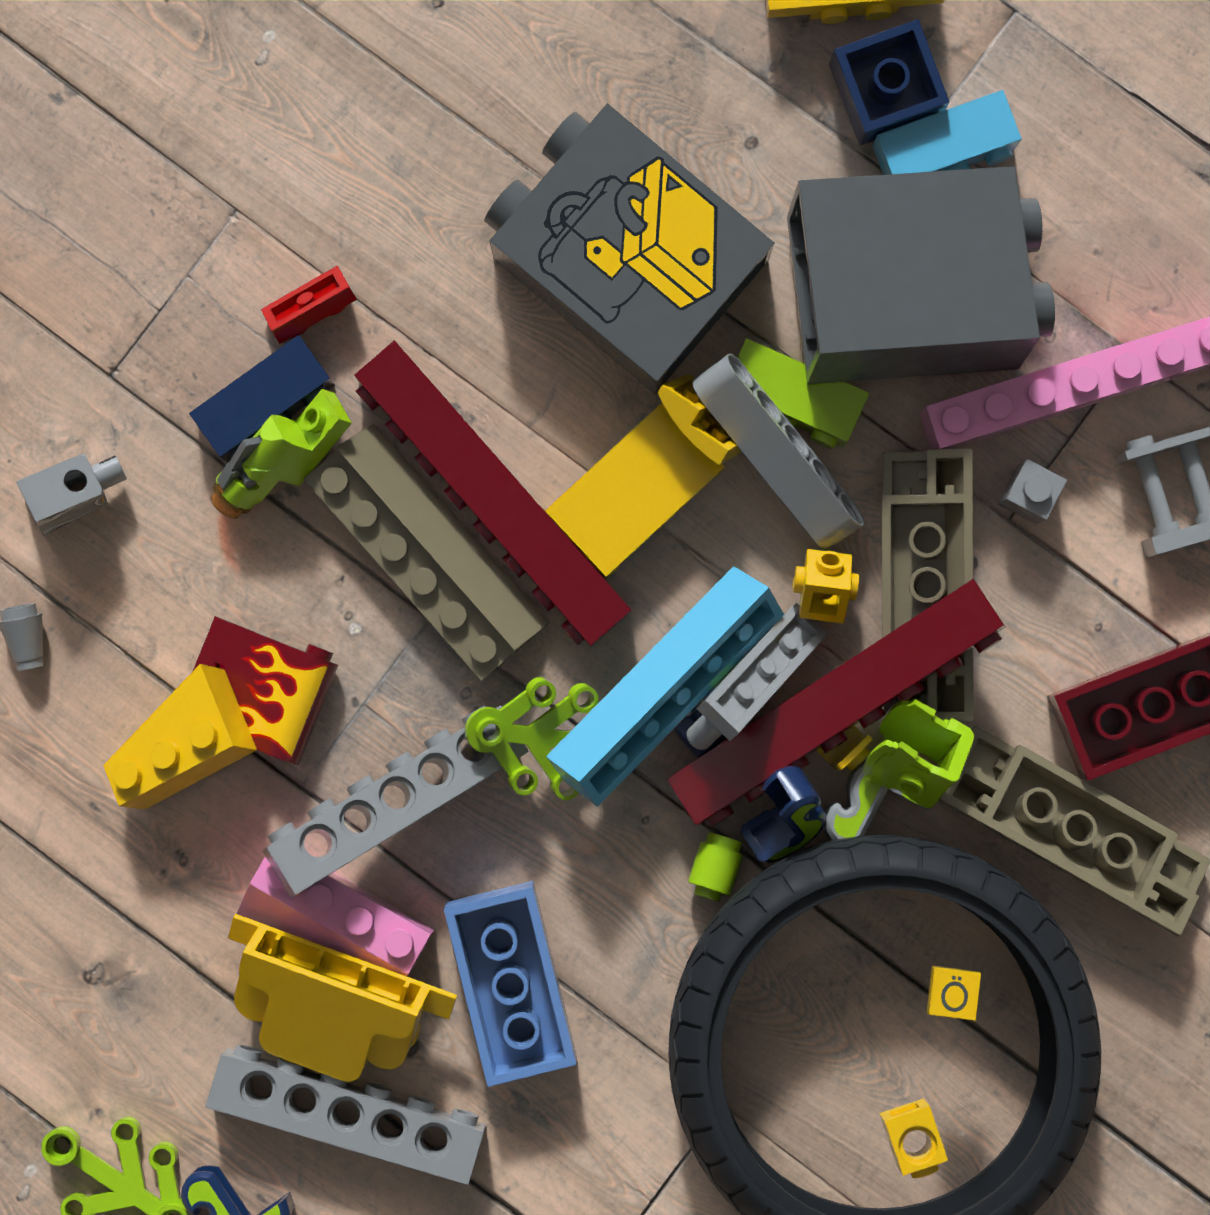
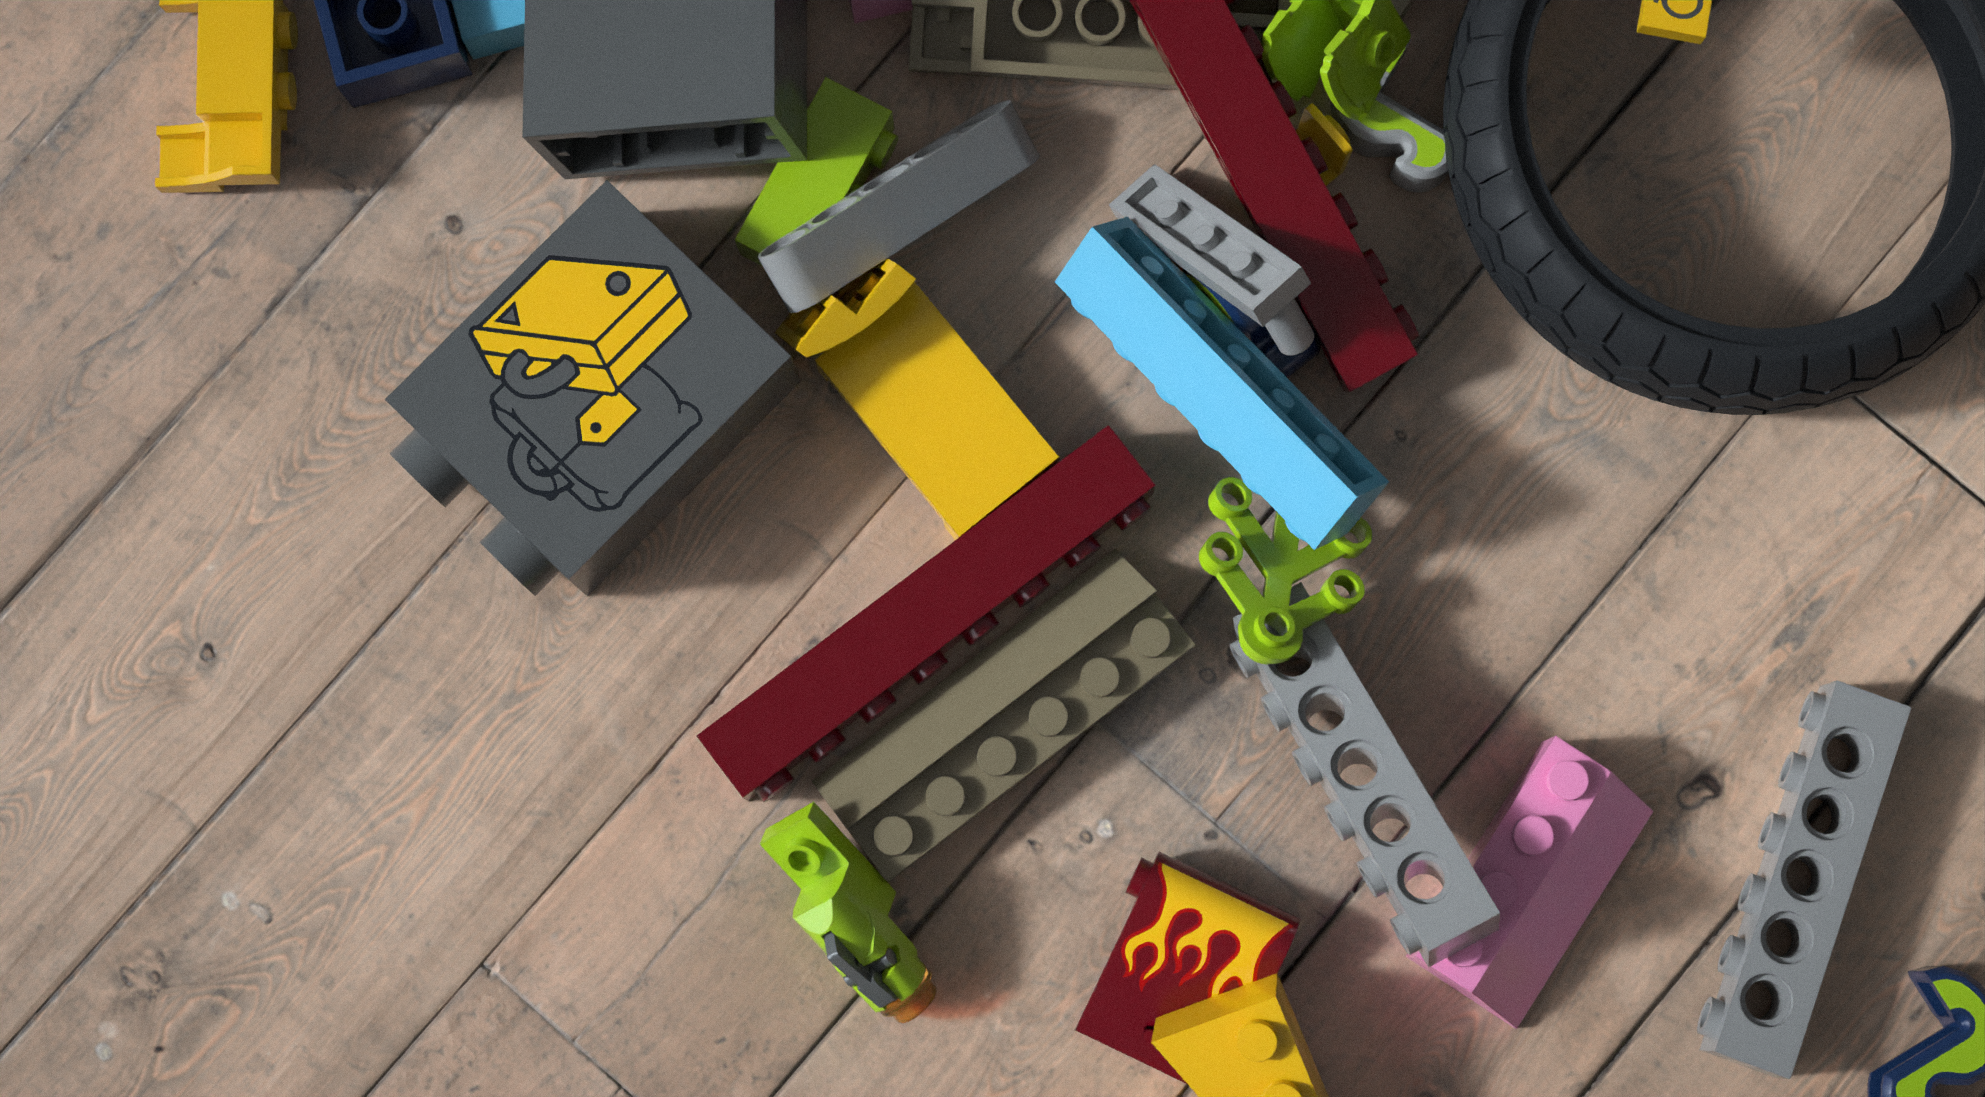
camera: 85 degrees left, 5 degrees down
(273, 387) = (761, 939): dark blue brick -> none
(308, 305) = (632, 861): red plate -> none
(327, 1005) = (1650, 891): yellow brick -> none
(510, 983) = (1626, 630): medium blue brick -> none
(716, 866) = (1473, 337): lime brick -> none
(791, 823) = (1416, 227): dark blue animal -> none
(825, 585) = (1090, 158): yellow brick -> none
(907, 1118) = (1853, 83): yellow brick -> none

